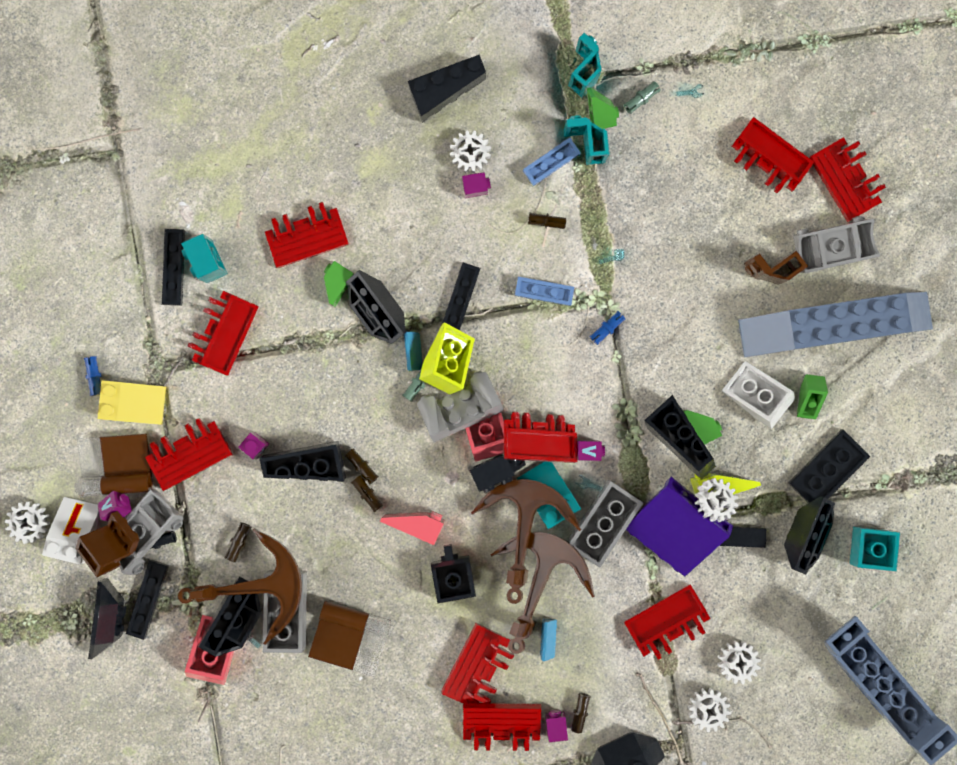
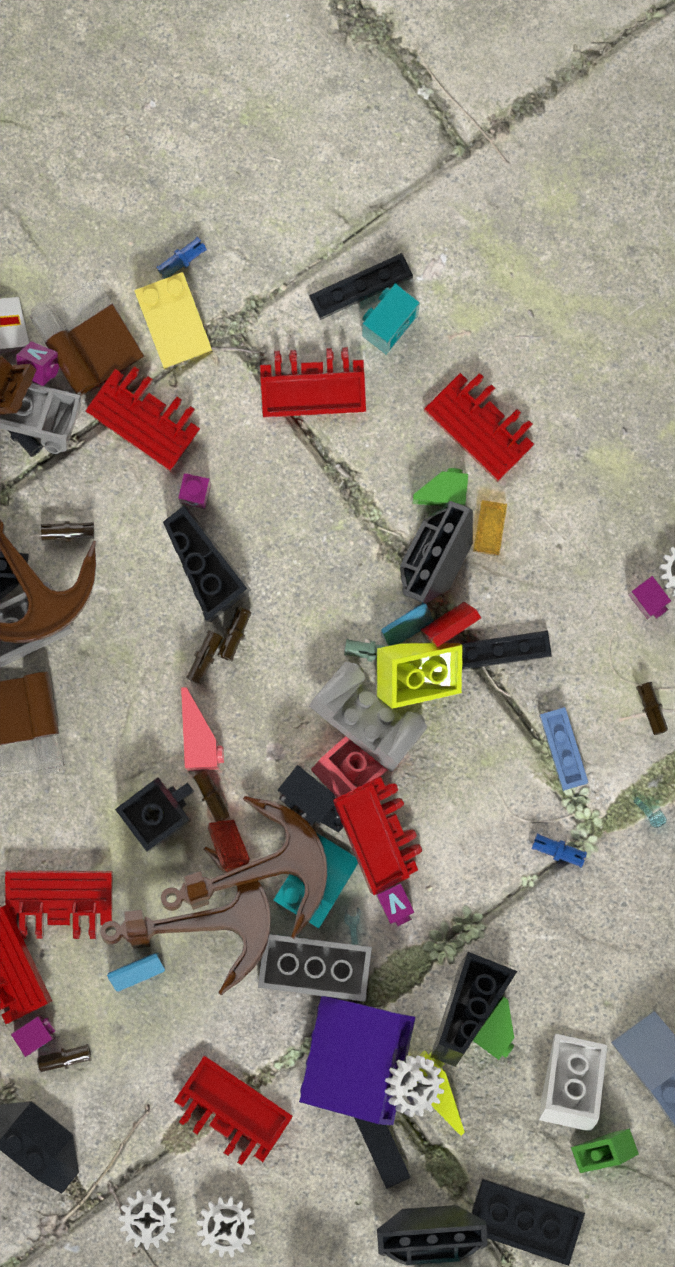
camera: 65 degrees right, 5 degrees down
(376, 264) = (490, 528): none -> clear yellow tile
(427, 322) = (450, 624): none -> red tile
(460, 534) = (211, 796): none -> dark brown axle
(497, 539) = (228, 844): none -> clear red tile

